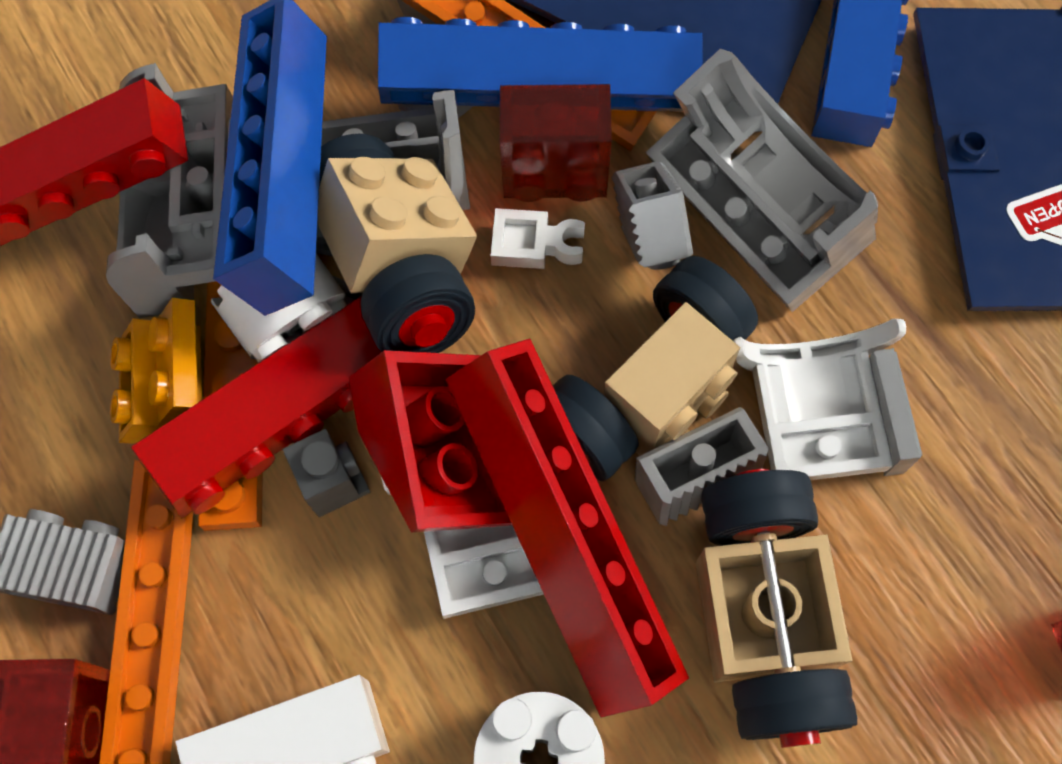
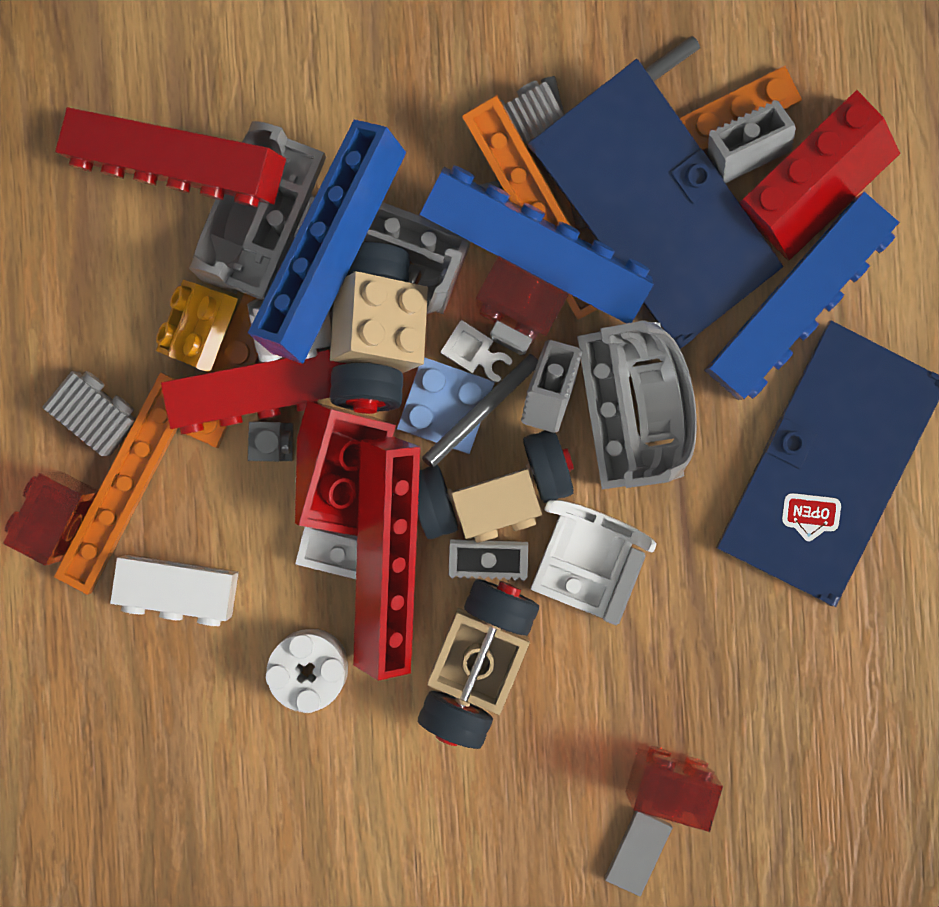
camera: 25 degrees right, 20 degrees up
(537, 305) = (440, 400): none -> light blue plate
(569, 186) = (510, 338): none -> light grey tile
(580, 295) = (480, 411): none -> dark grey bar

